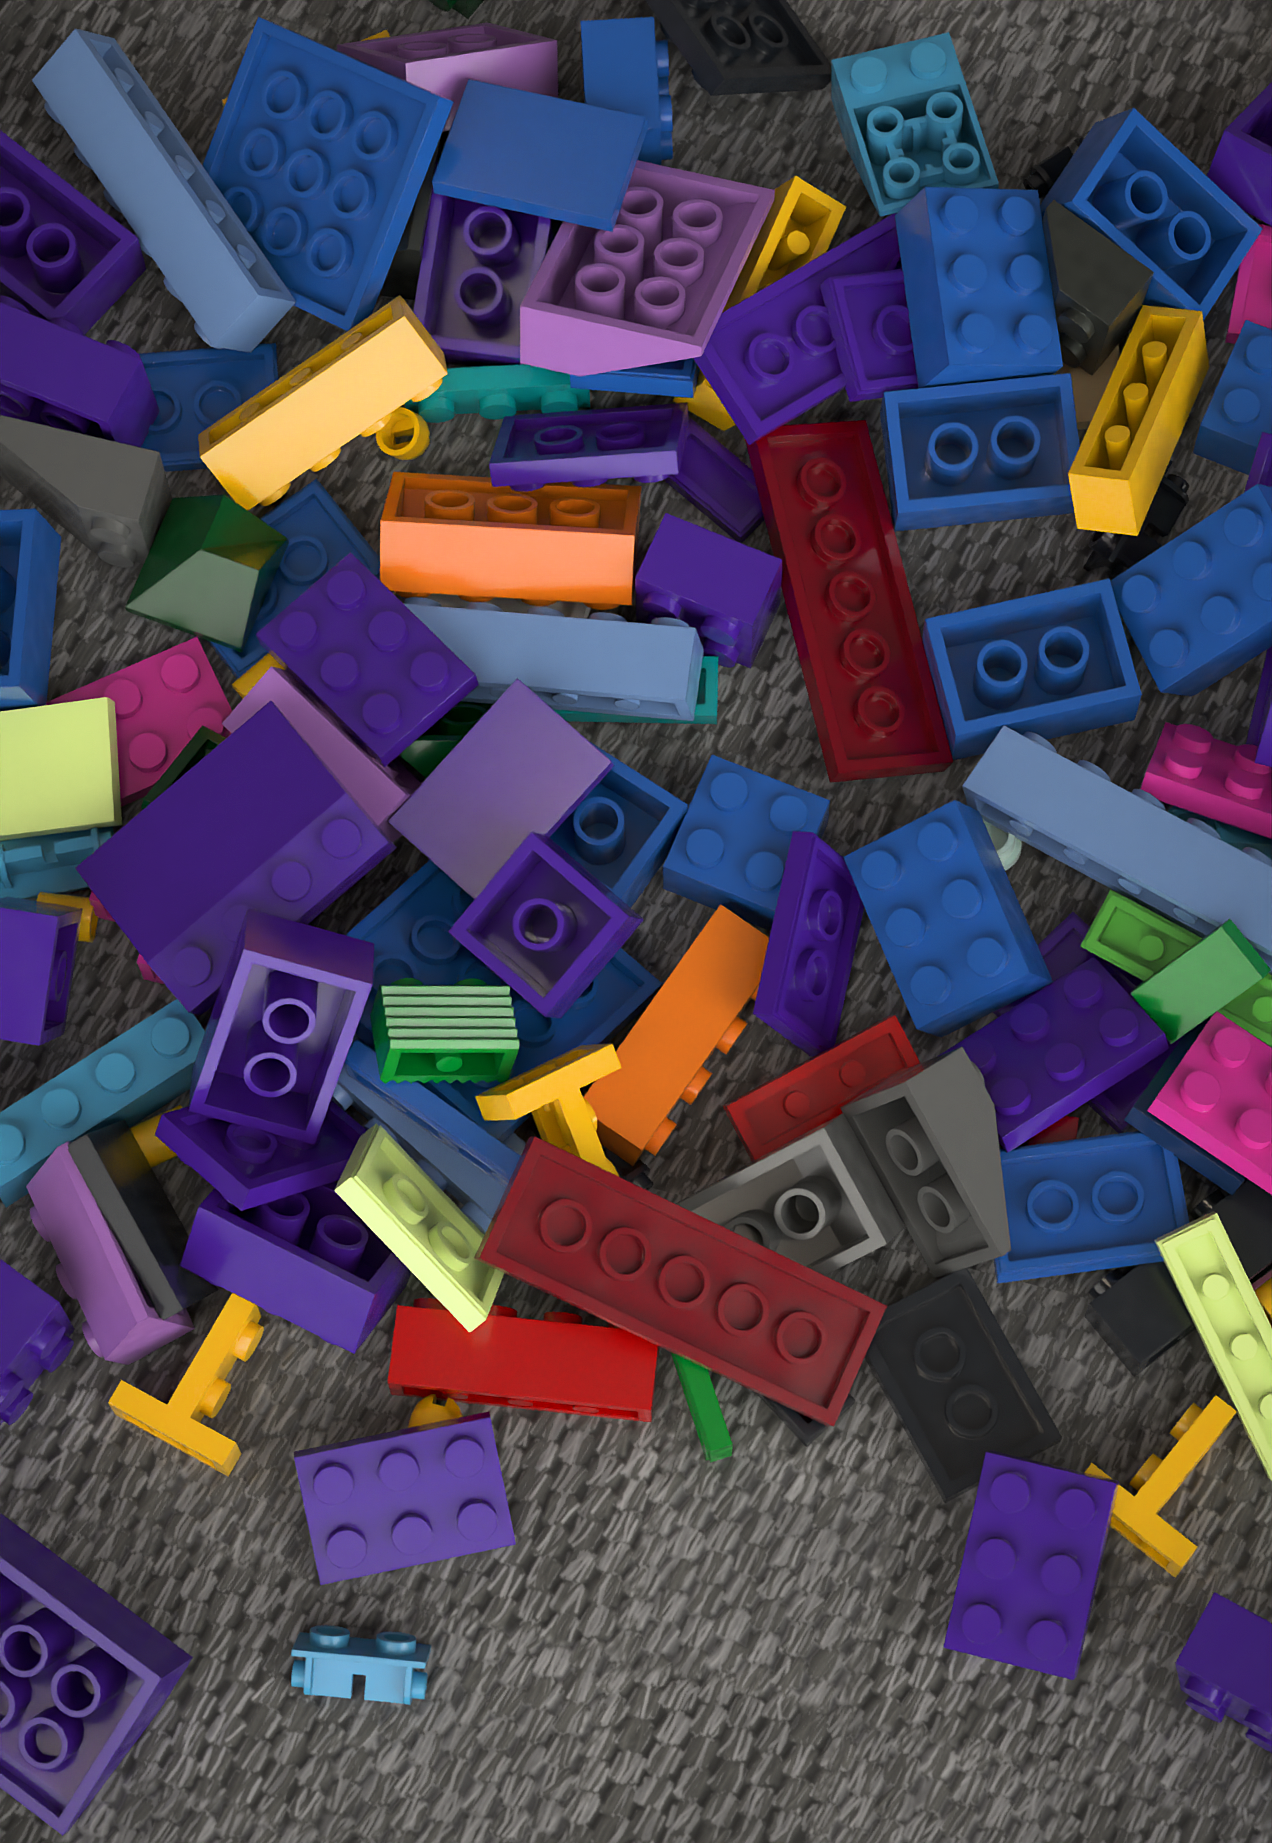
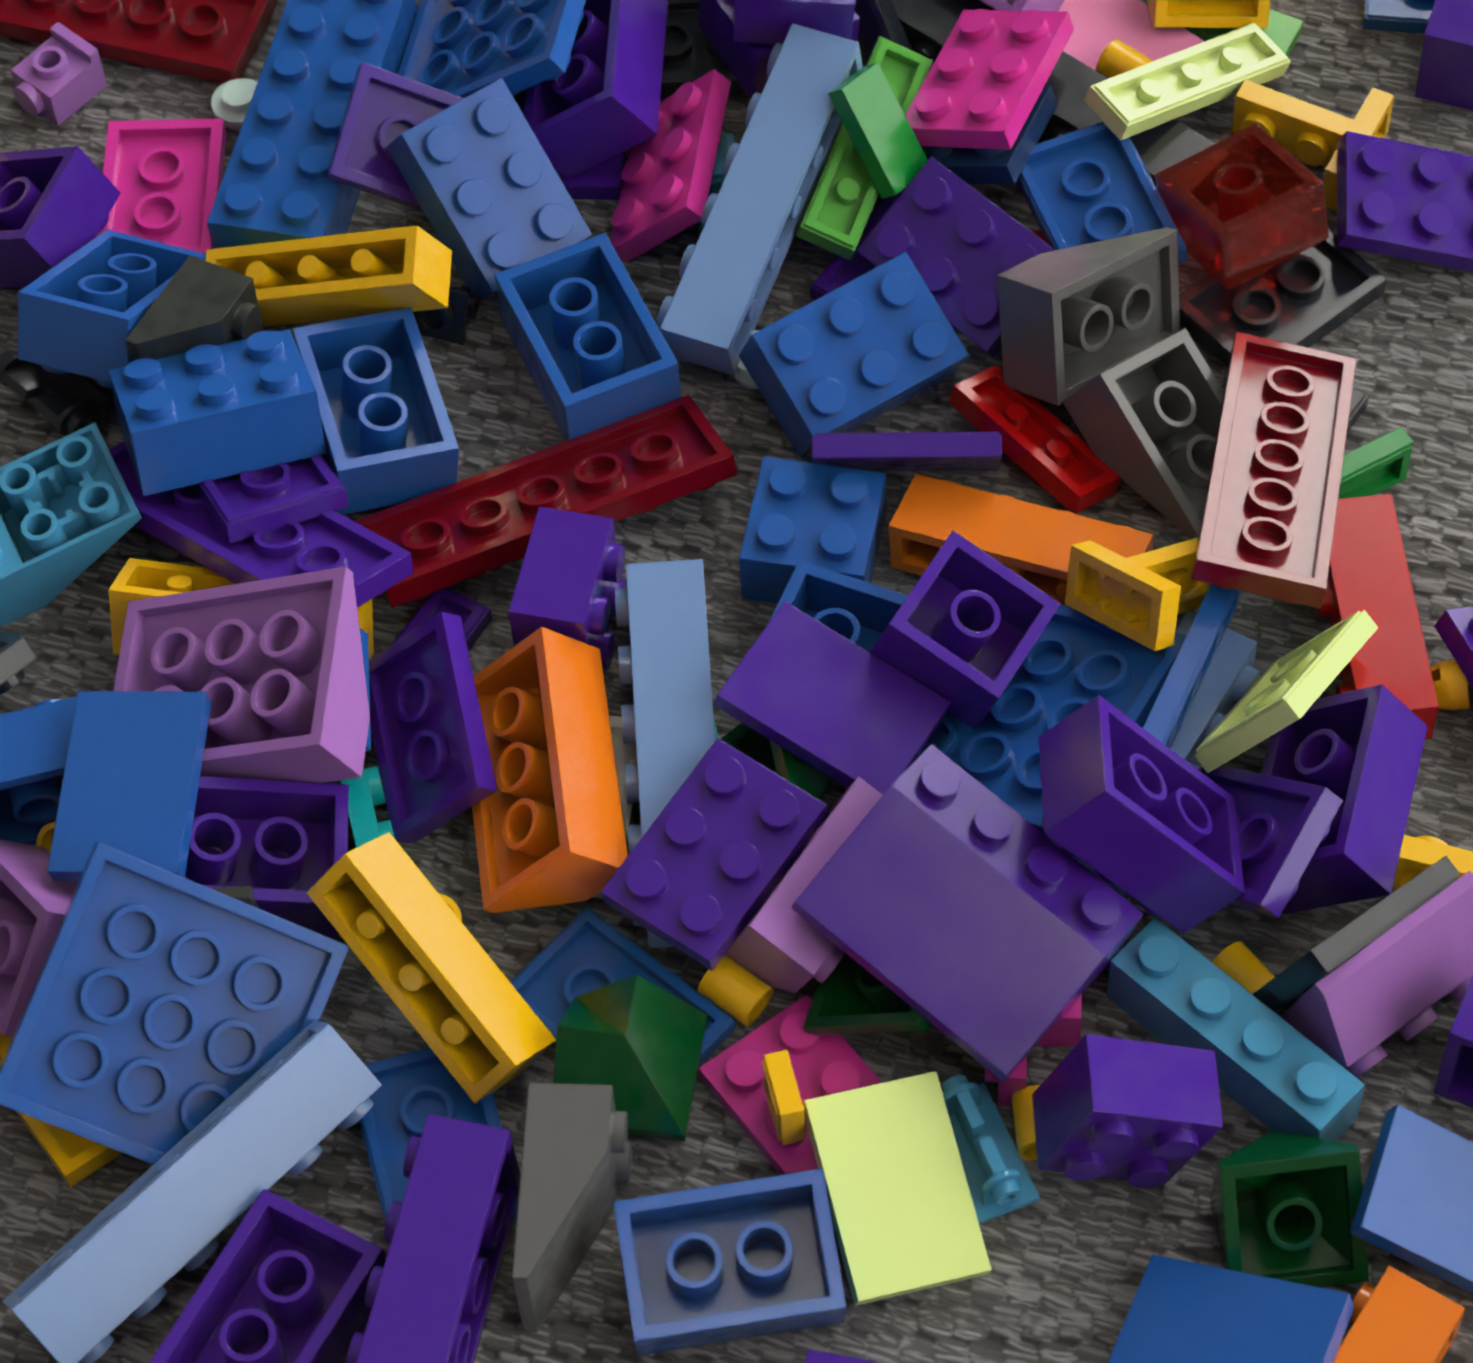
camera: 100 degrees left, 15 degrees down
(123, 682) = (783, 1097): none -> yellow tile
(444, 1031) = (1093, 661): green brick -> none
(1042, 1348) = (1244, 205): none -> clear red brick

